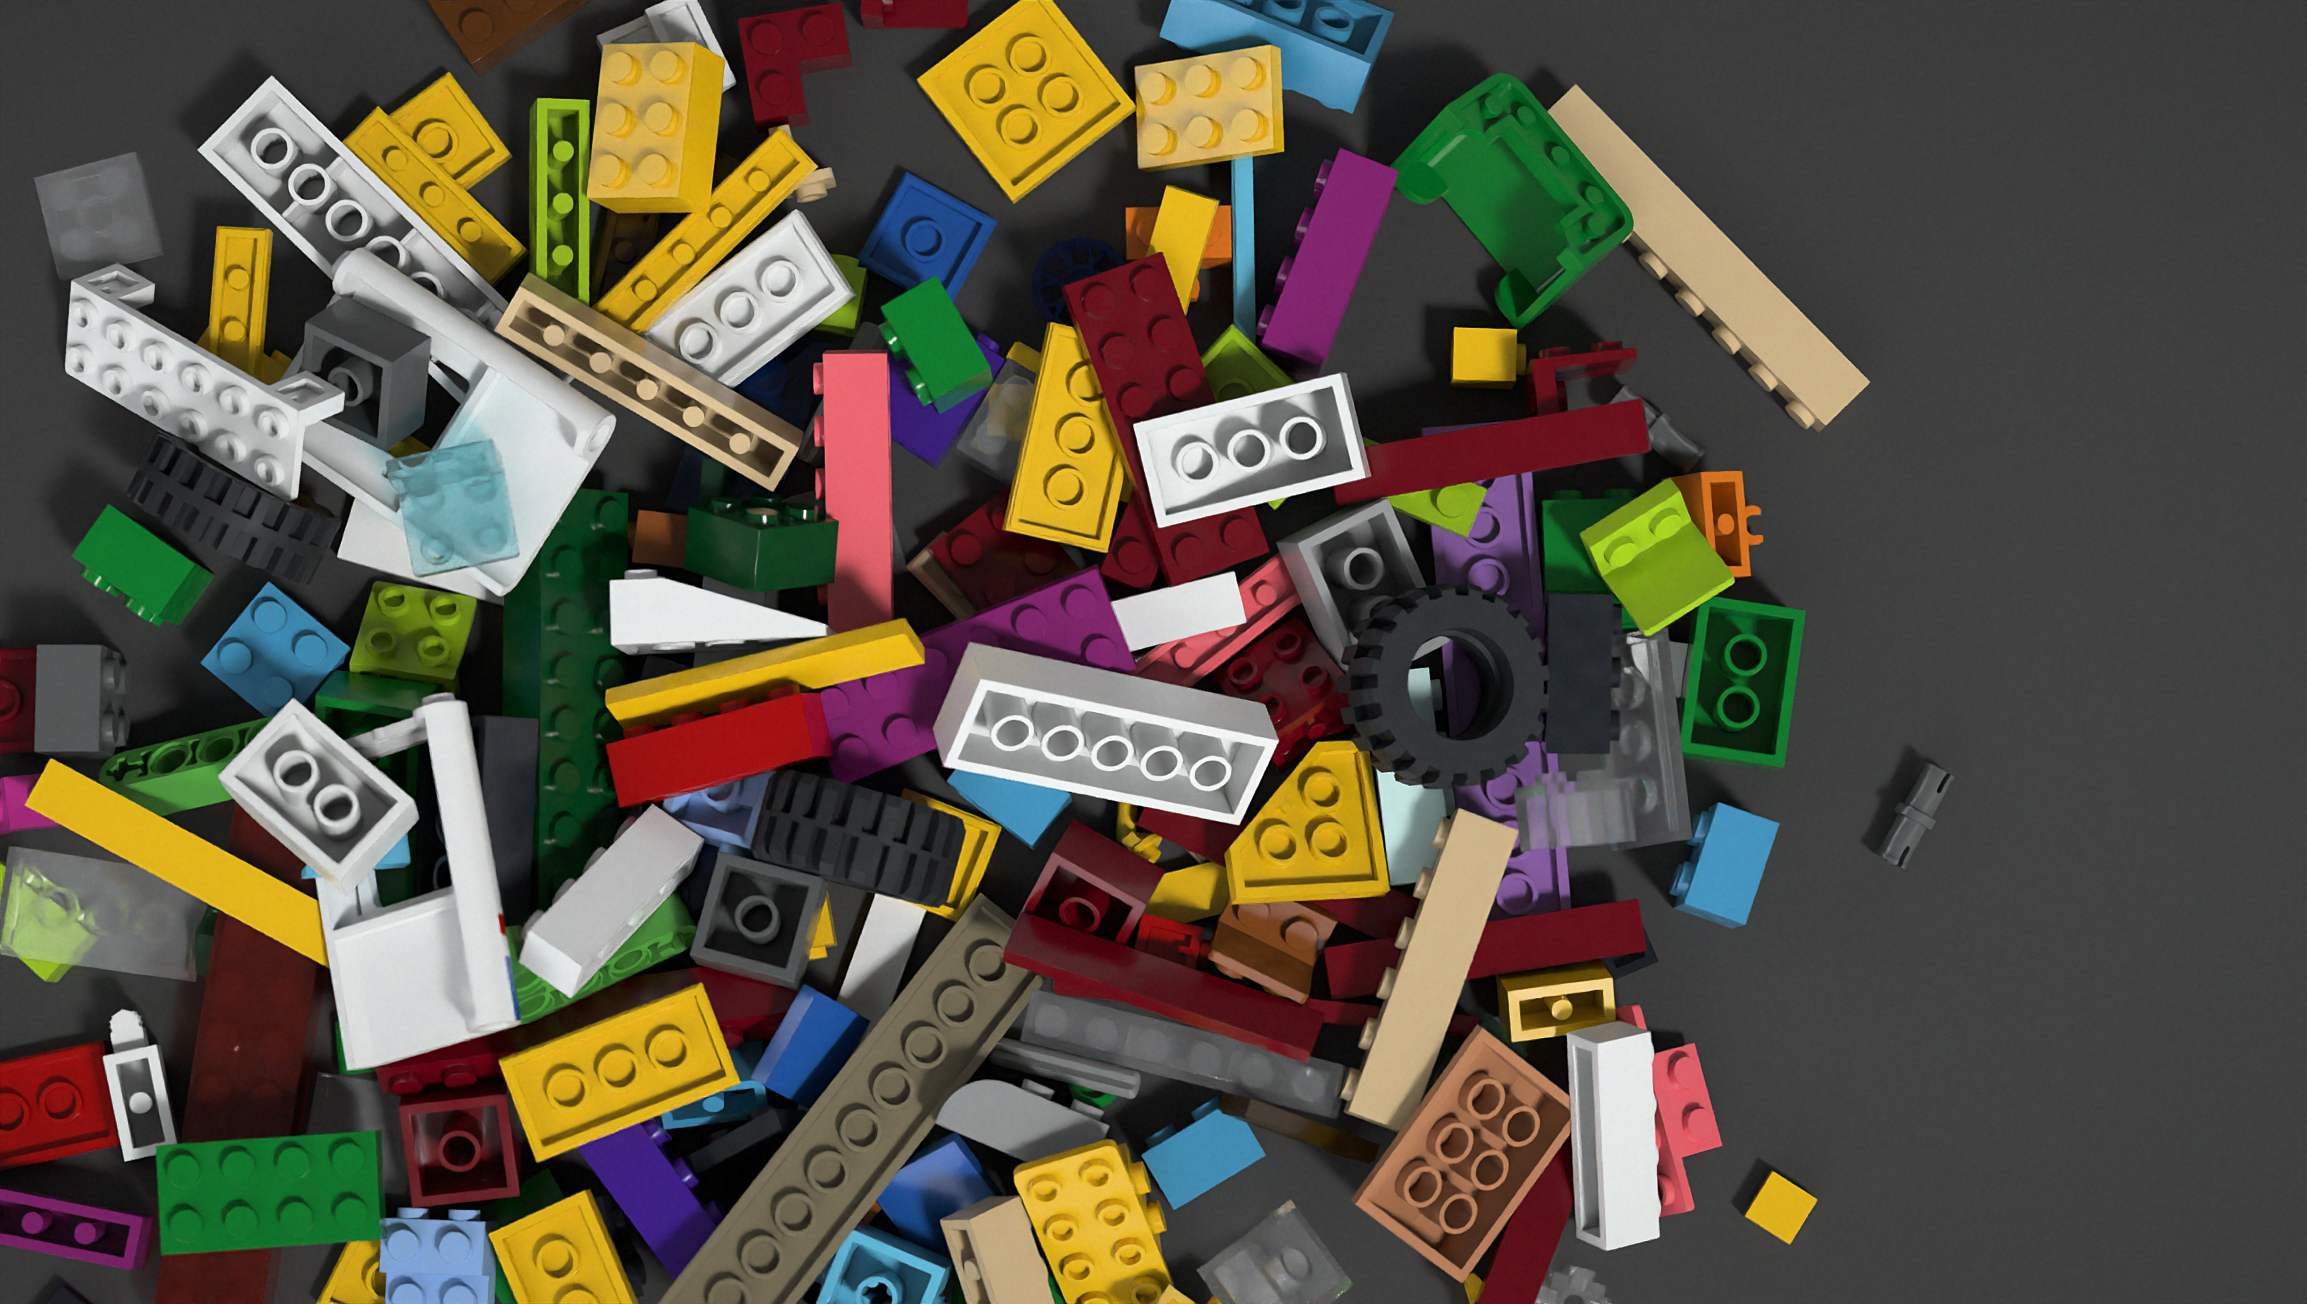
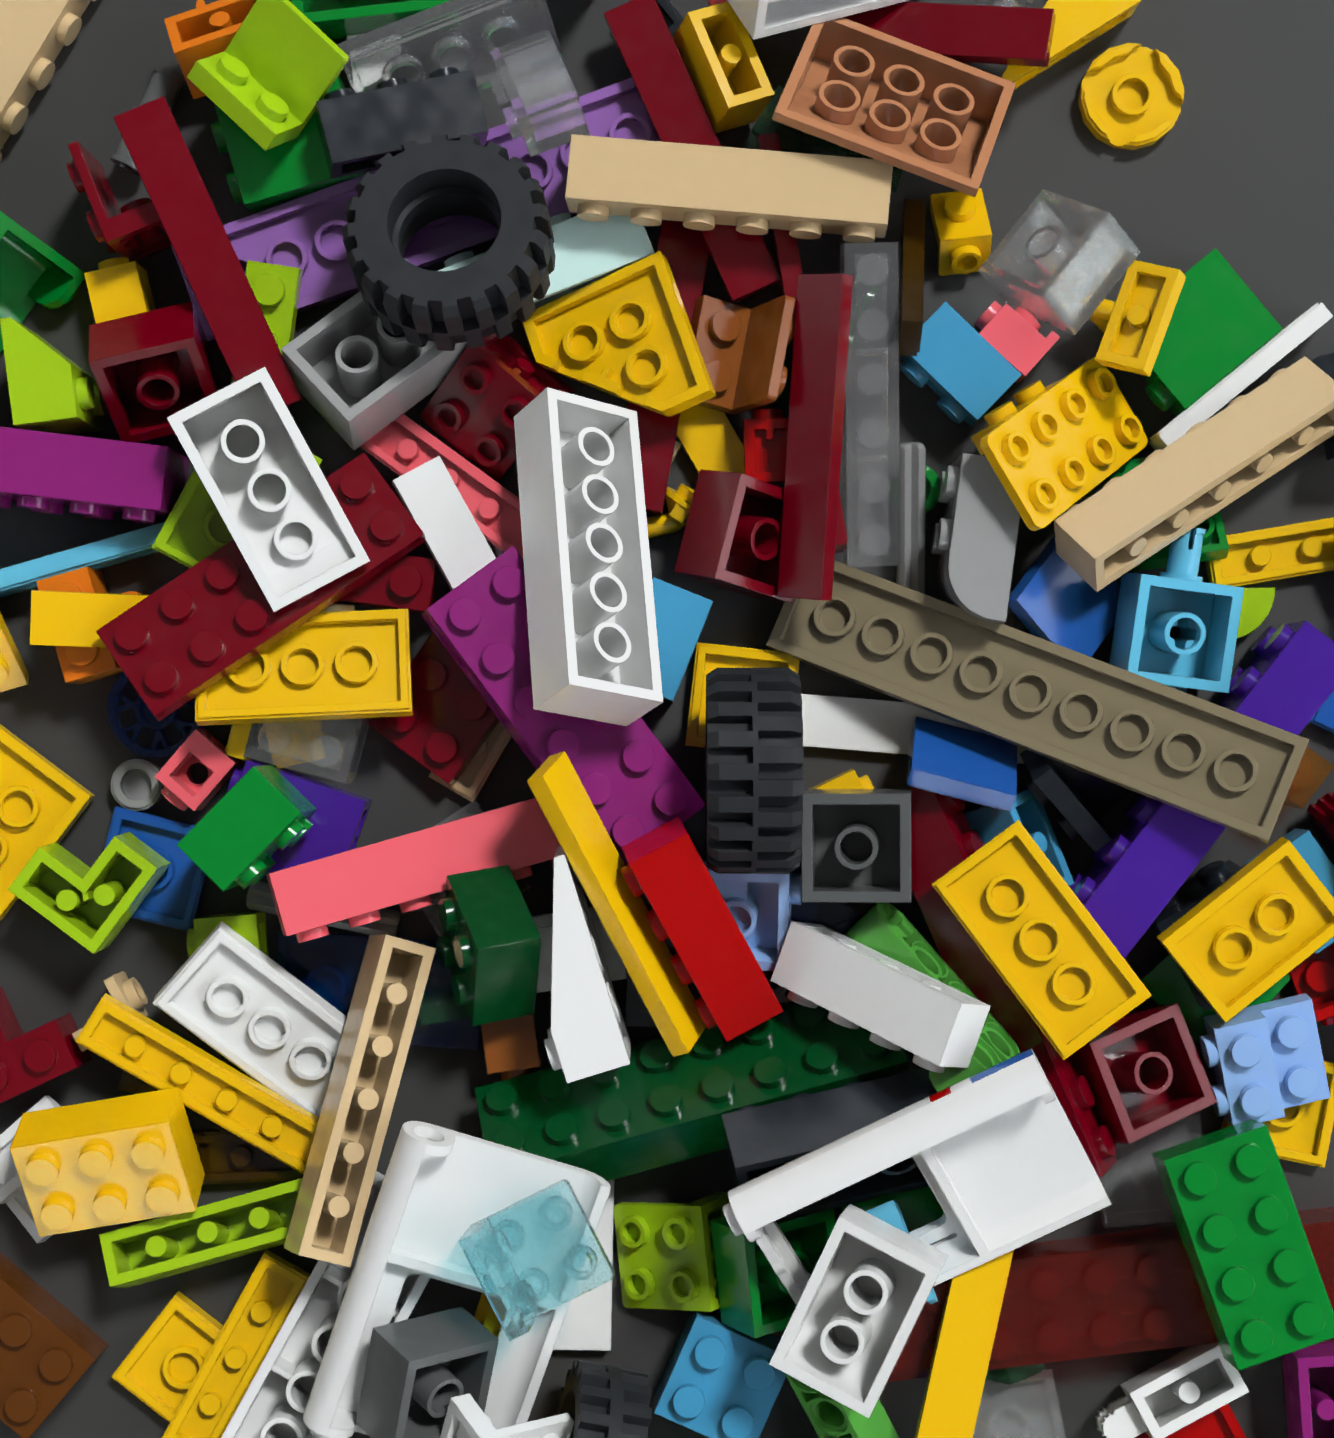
camera: 105 degrees left, 5 degrees up
(909, 178) = (95, 900): none -> lime brick
(1008, 287) = (176, 774): none -> coral brick
(1012, 248) = (135, 784): none -> light grey tile
(1215, 1216) = (1015, 336): none -> coral brick
(1326, 1195) = (960, 231): none -> yellow bracket
(1403, 371) = (152, 368): none -> dark red brick
(1418, 268) = (47, 387): none -> lime slope

